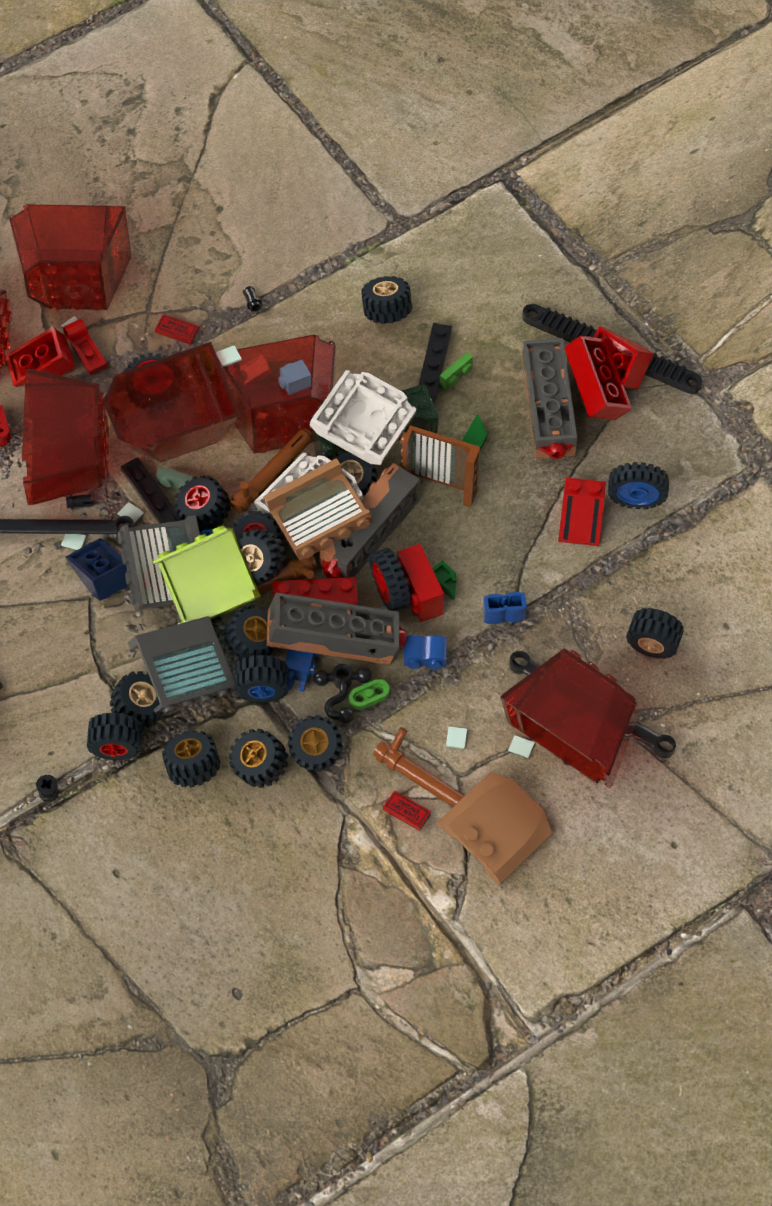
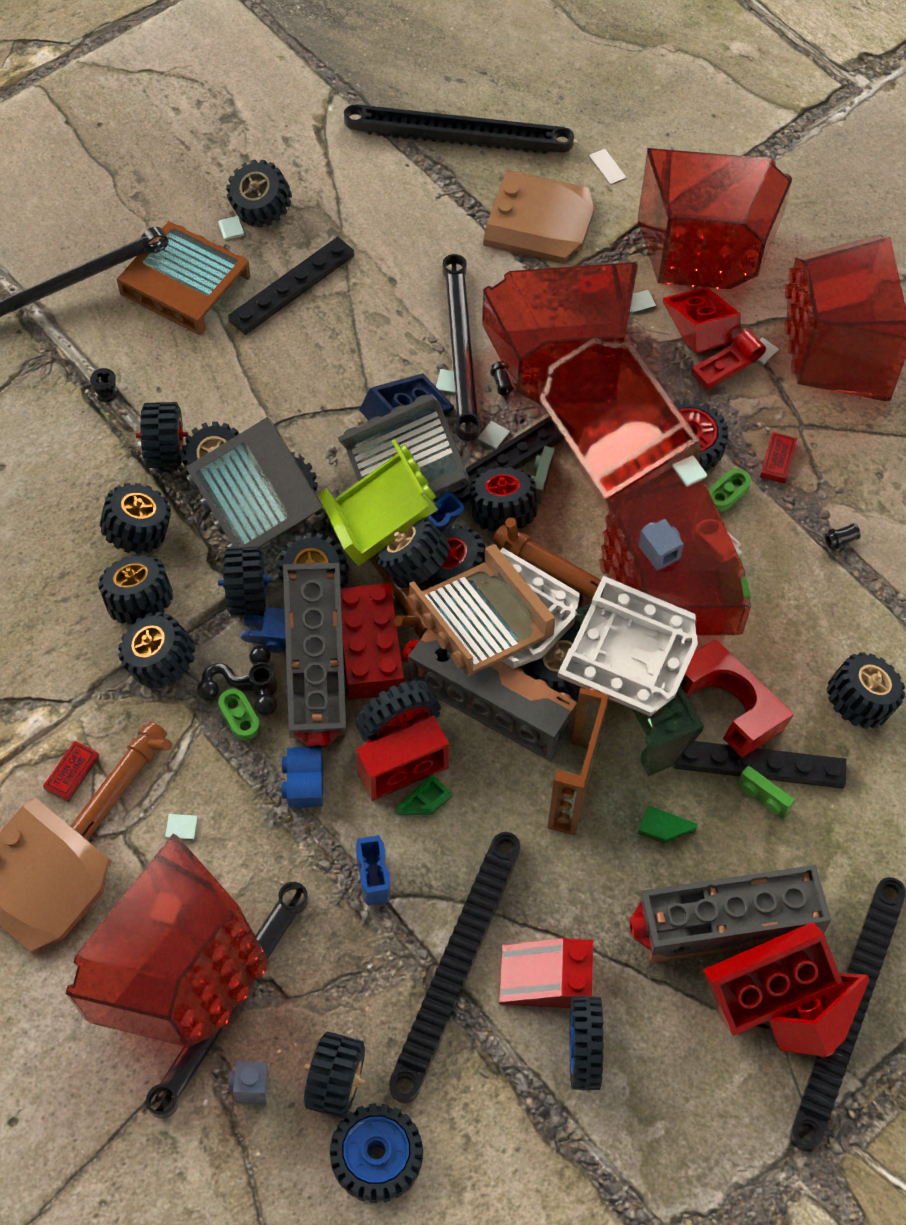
camera: 85 degrees right, 0 degrees up
(12, 402) = (642, 300): none -> light aqua piece
(401, 364) = (764, 713): none -> red arch
(570, 566) = (454, 967): none -> black gear
(654, 690) = (249, 1082): none -> sand blue brick
(712, 609) = (371, 1177): none -> wheel

